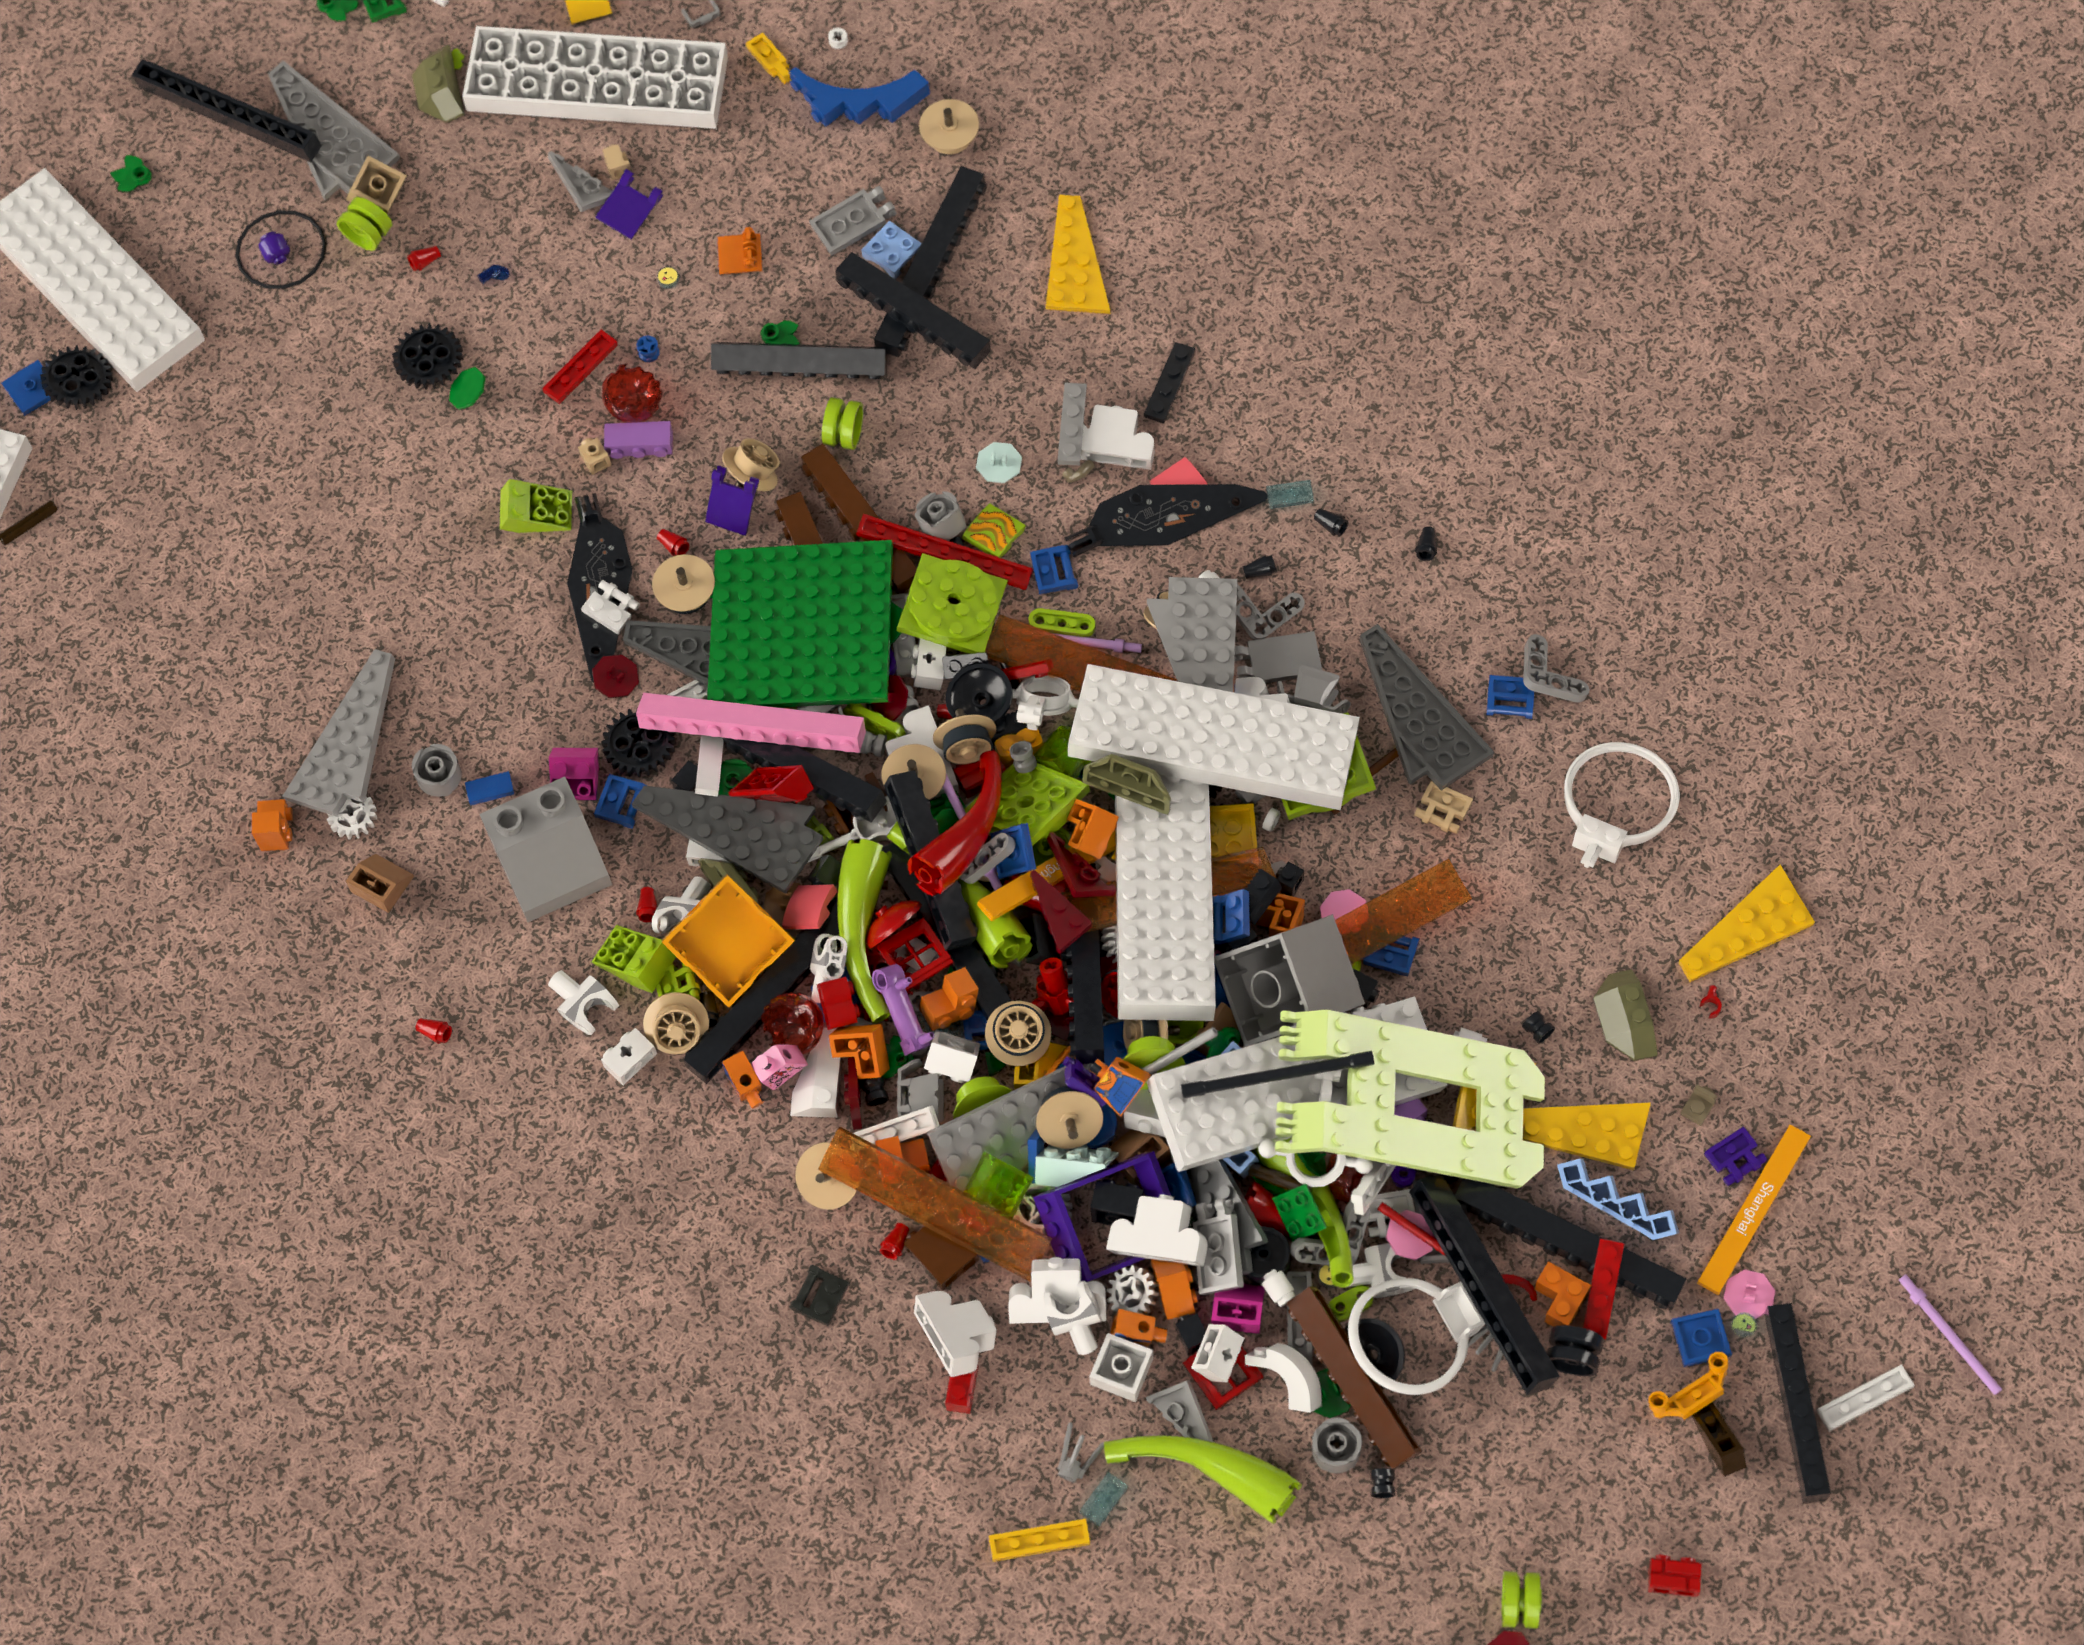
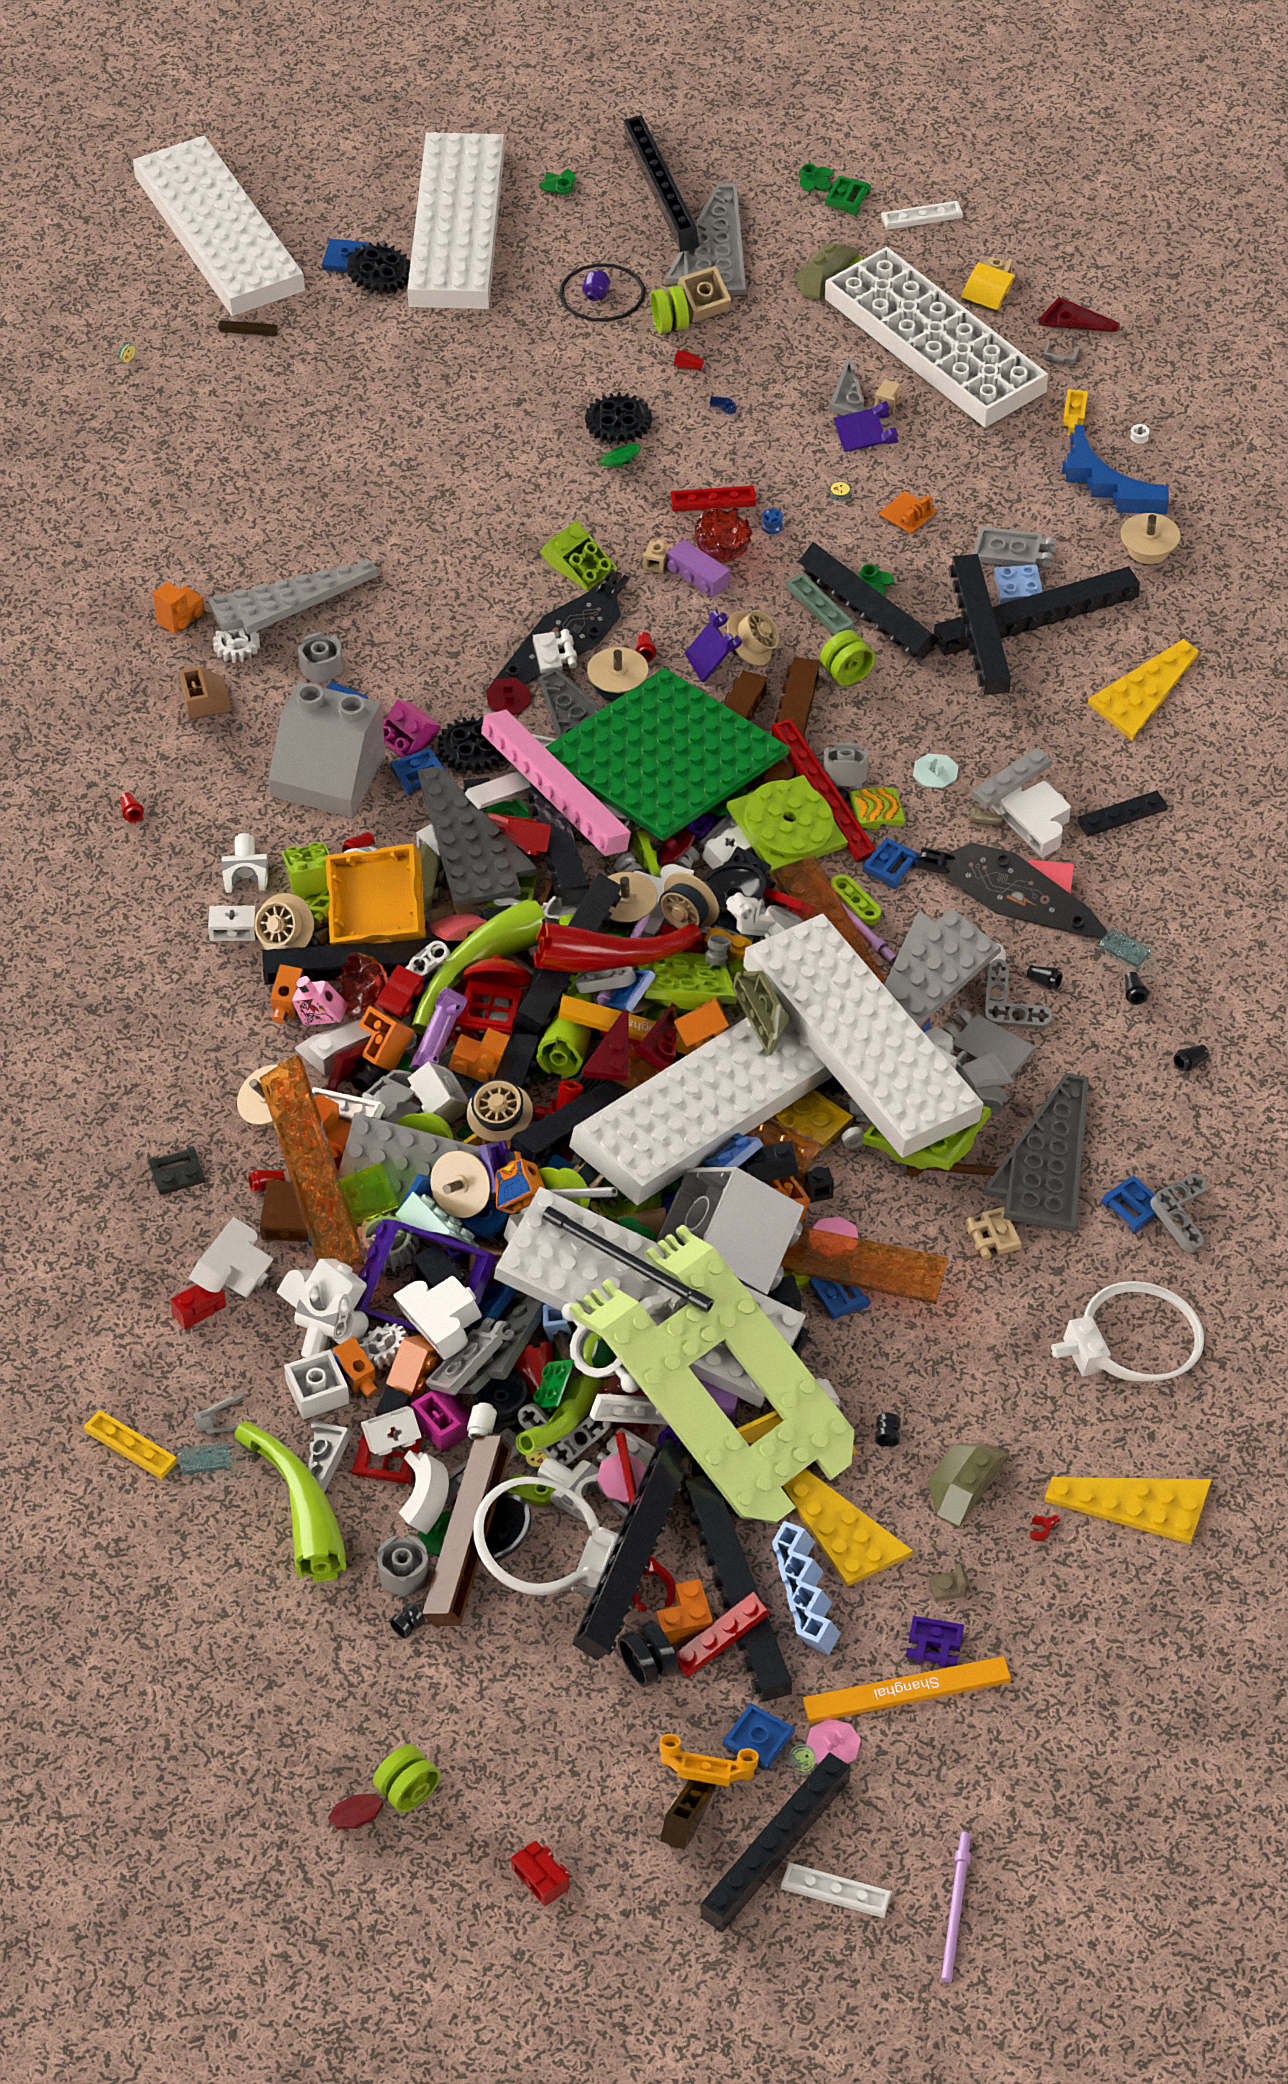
camera: 40 degrees right, 15 degrees down
(763, 392) = (819, 604): none -> sand green plate

